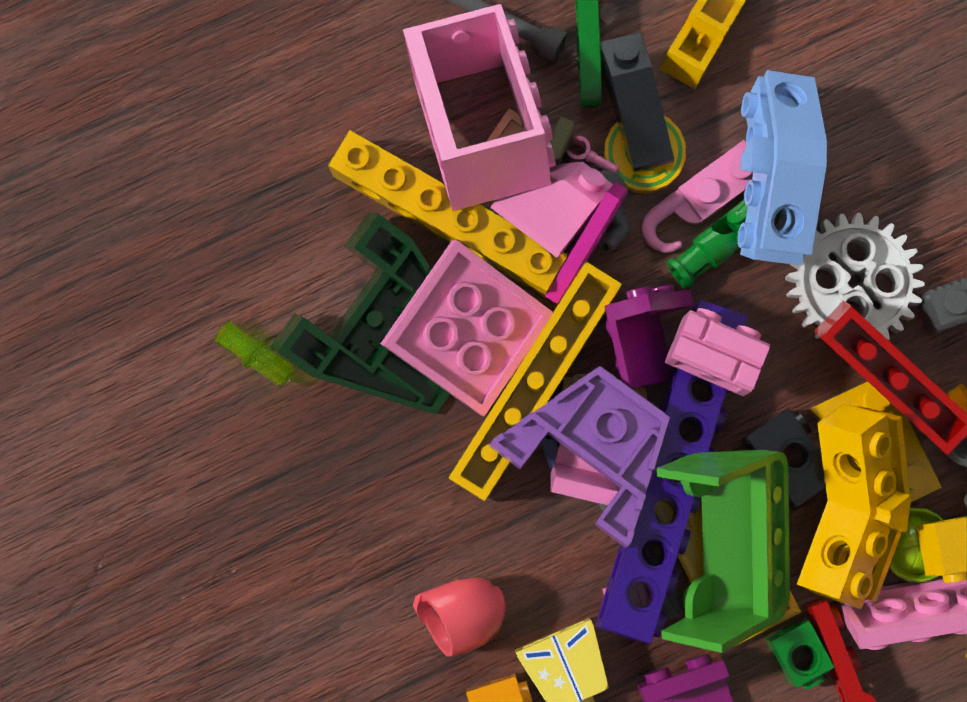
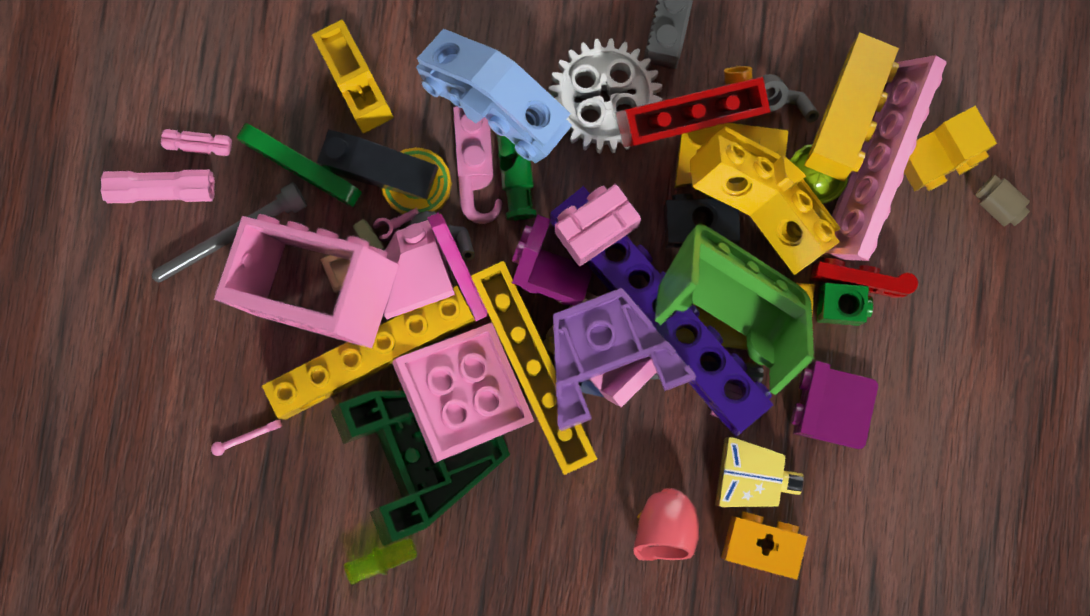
camera: 60 degrees left, 0 degrees up
(265, 130) = (219, 448): none -> bright pink hinge

